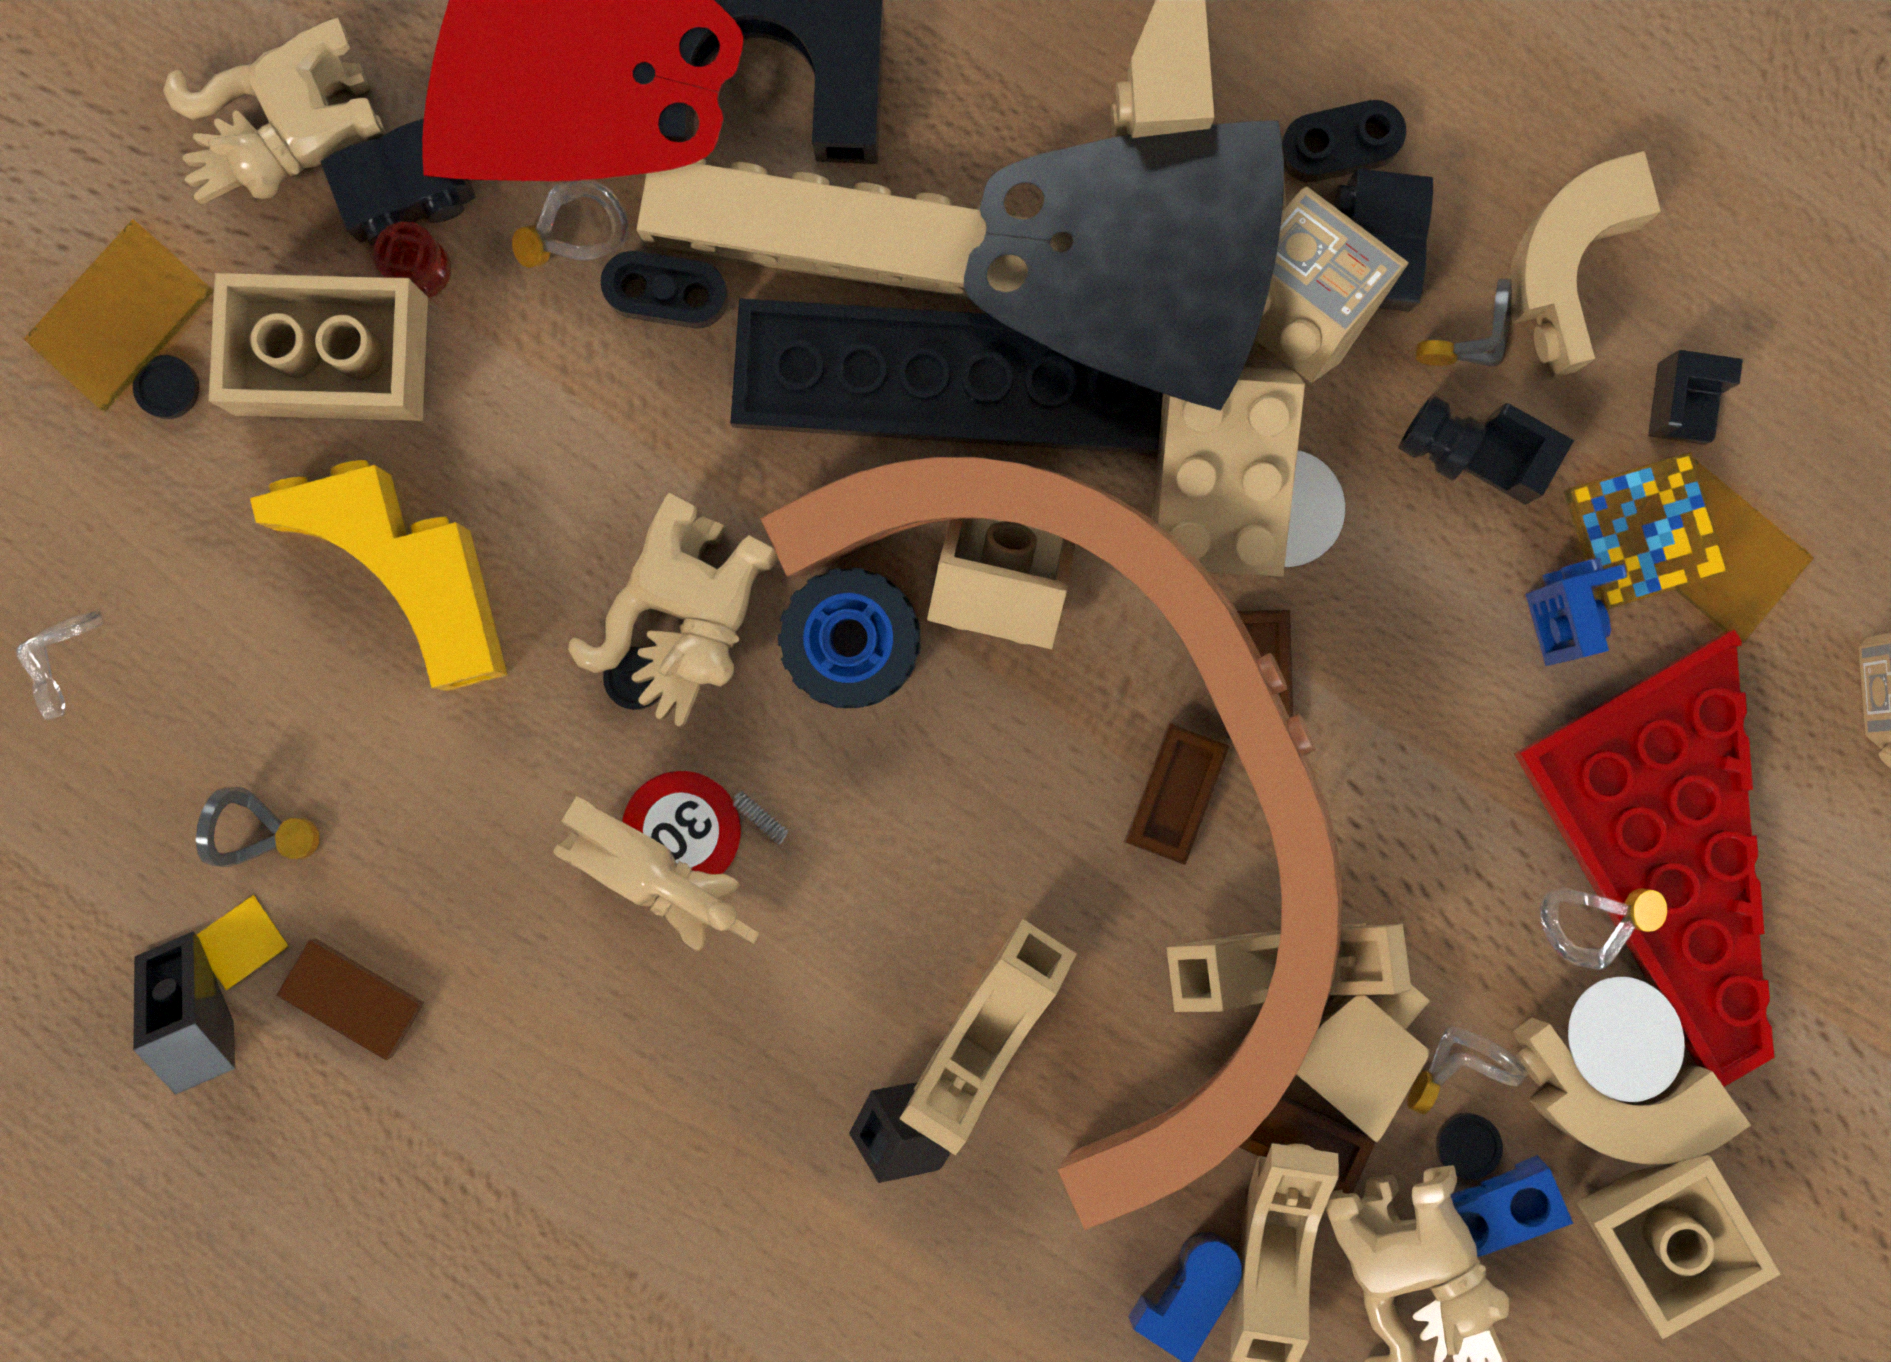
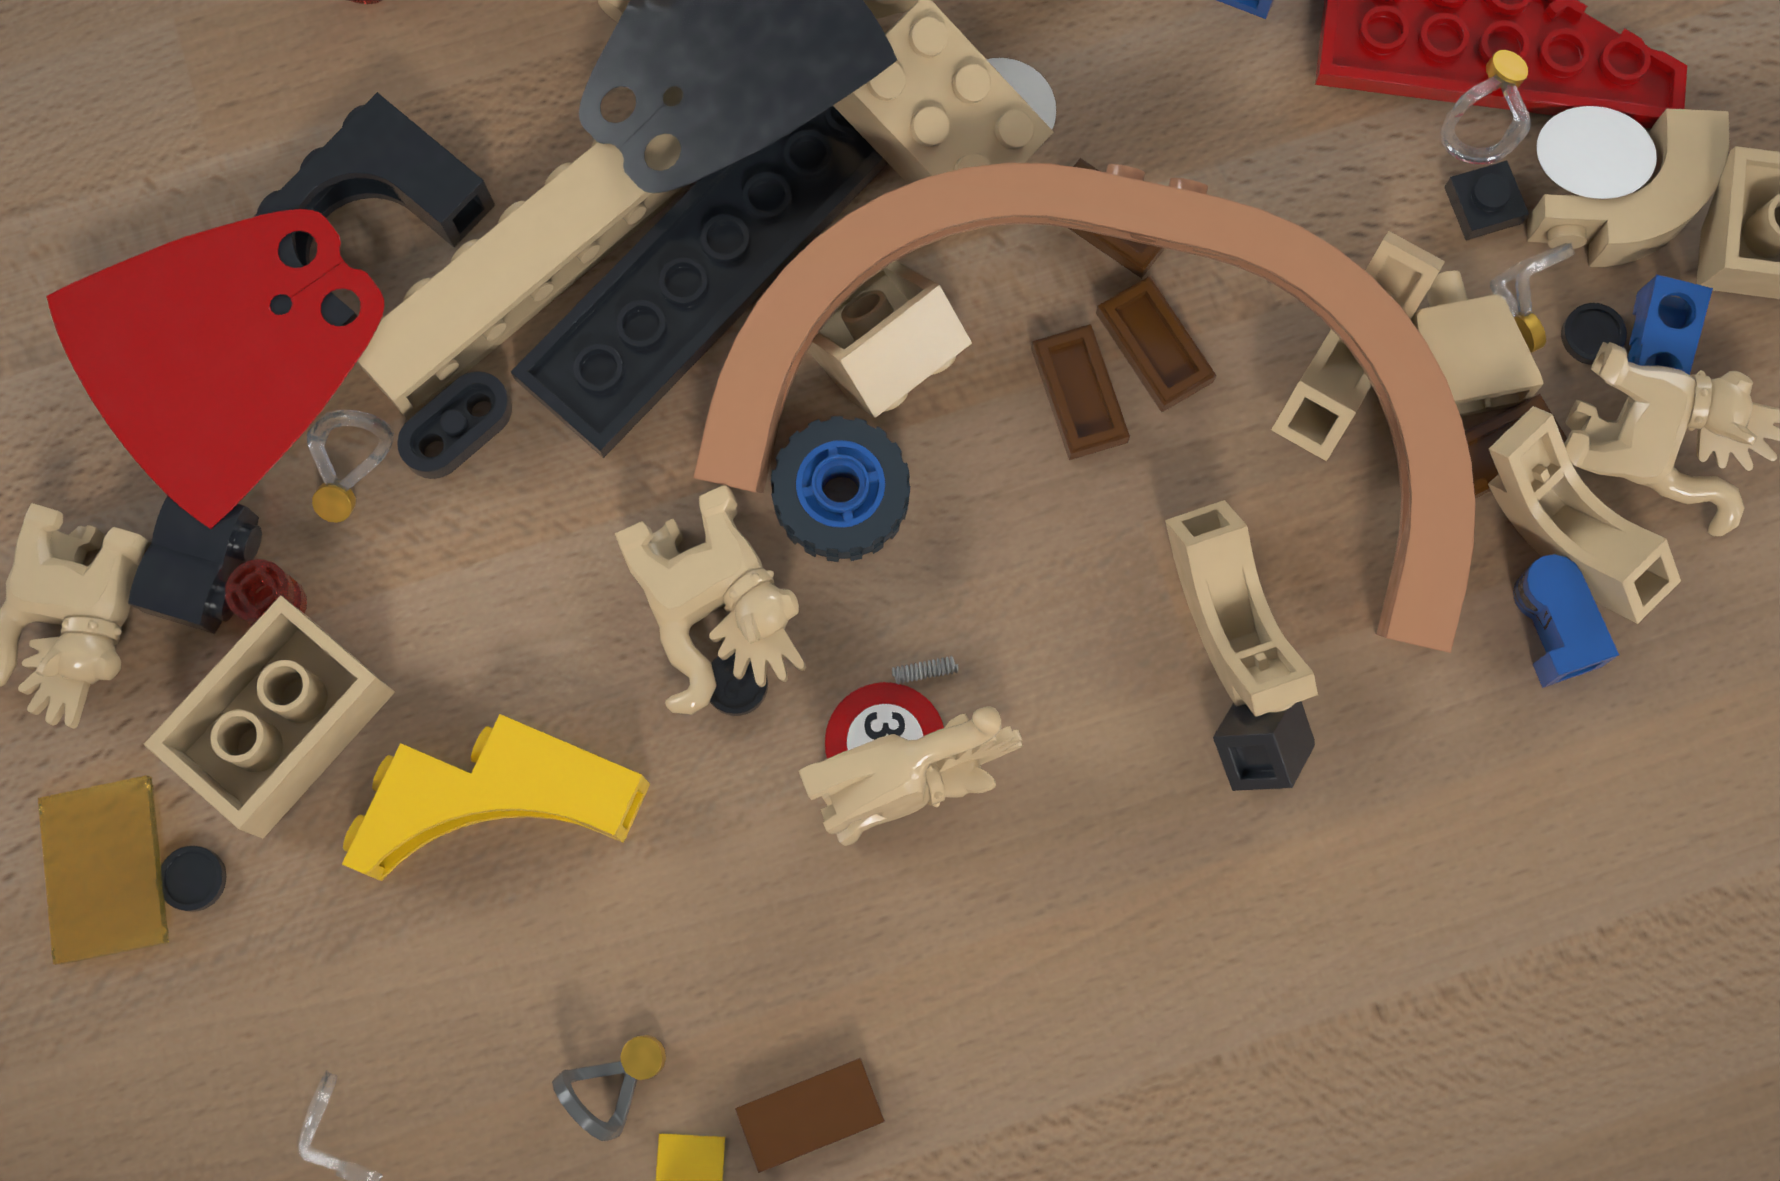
camera: 50 degrees left, 10 degrees down
(1087, 764) = (1080, 392): none -> reddish brown tile
(1519, 973) = (1486, 200): none -> black plate

